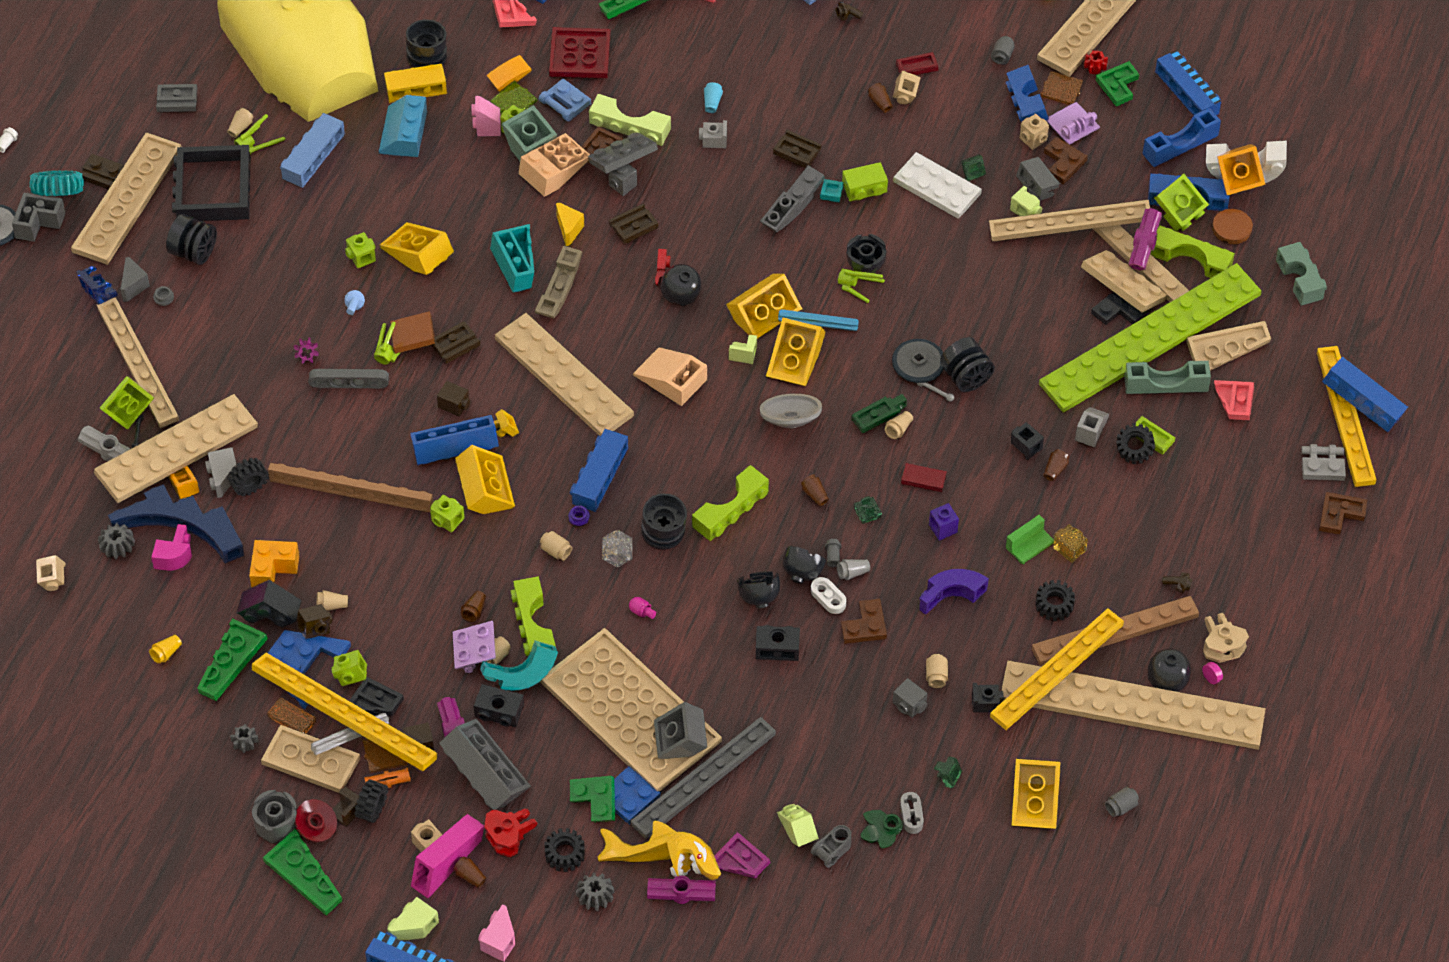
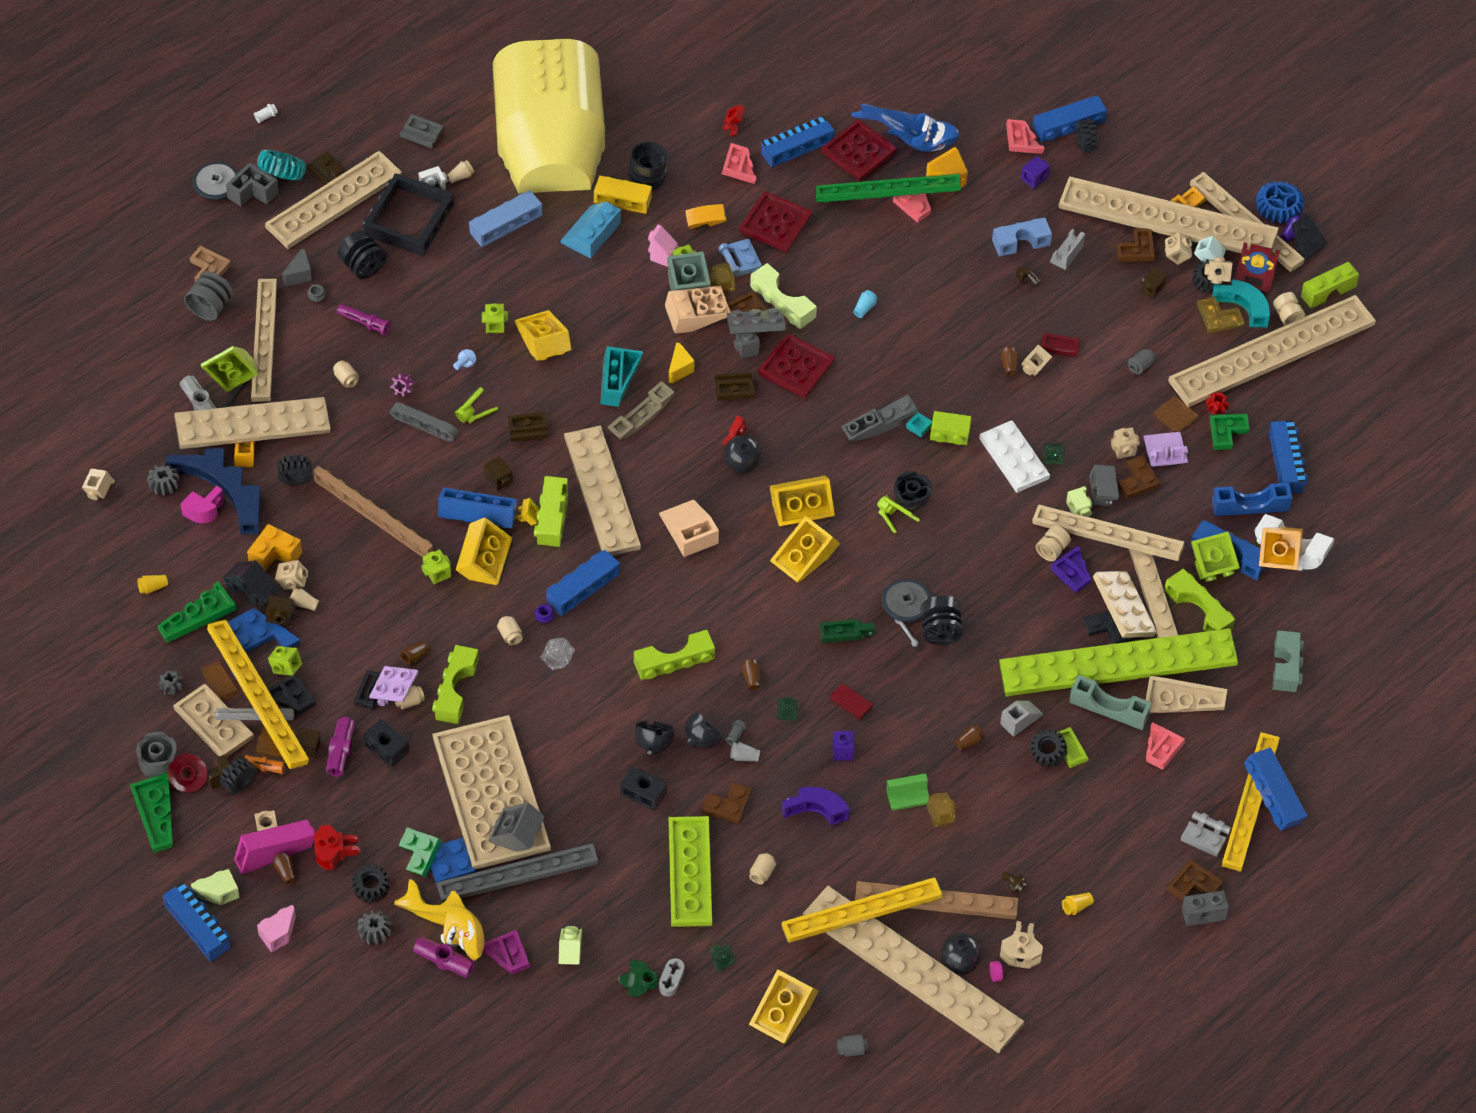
camera: 25 degrees right, 0 degrees up
(40, 309) = (209, 262): none -> medium nougat plate
(57, 340) = (208, 295): none -> dark grey wheel
(96, 286) = (266, 263): clear blue hinge -> none
(217, 136) = (433, 176): none -> white bracket
(220, 465) = (276, 450): light grey slope -> none
(237, 302) = (371, 321): none -> magenta pin
(242, 363) = (346, 374): none -> tan brick
(247, 139) = (456, 188): lime plant -> none
(306, 581) = (291, 575): none -> tan brick
(413, 332) = (497, 404): dark orange tile -> none
(450, 676) = (365, 702): none -> black tile
(484, 764) = (344, 785): dark grey slope -> none
(514, 95) = (699, 239): clear neon green piece -> none
(526, 674) = (420, 726): teal arch -> none
(530, 414) = (552, 511): none -> lime wedge
(562, 123) = (722, 276): none -> clear yellow brick
(641, 608) = (550, 711): dark pink cylinder -> none
(663, 521) = (607, 647): black wheel -> none
(681, 181) = (796, 365): none -> dark red plate
(713, 134) = (847, 337): light grey brick -> none
(744, 352) = (763, 532): yellowish green panel -> none
(791, 410) = (769, 597): light grey dish -> none
(797, 149) = (911, 377): dark brown plate -> none
(820, 320) = (841, 531): dark azure axle -> none
(830, 596) = (710, 768): white plate -> none
(831, 849) = (587, 975): dark grey piece -> none
(869, 703) = (690, 871): none -> lime plate
(897, 426) = (854, 648): tan cone -> none
(910, 698) = (725, 882): dark grey brick -> none
(986, 697) = (789, 907): black brick -> none
(1022, 84) = (1138, 396): blue arch -> none
(1024, 251) = (1053, 543): none -> tan wheel
(1027, 440) = (956, 706): black brick -> none
(1056, 269) = (1072, 570): none -> dark purple wing
(1058, 590) = (899, 842): black tyre -> none
(1145, 239) = (1160, 575): magenta piece -> none
(1232, 226) = (1252, 595): dark orange tile -> none
(1246, 578) = (1076, 903): none -> yellow cone
(1366, 531) = (1205, 908): none -> dark grey brick

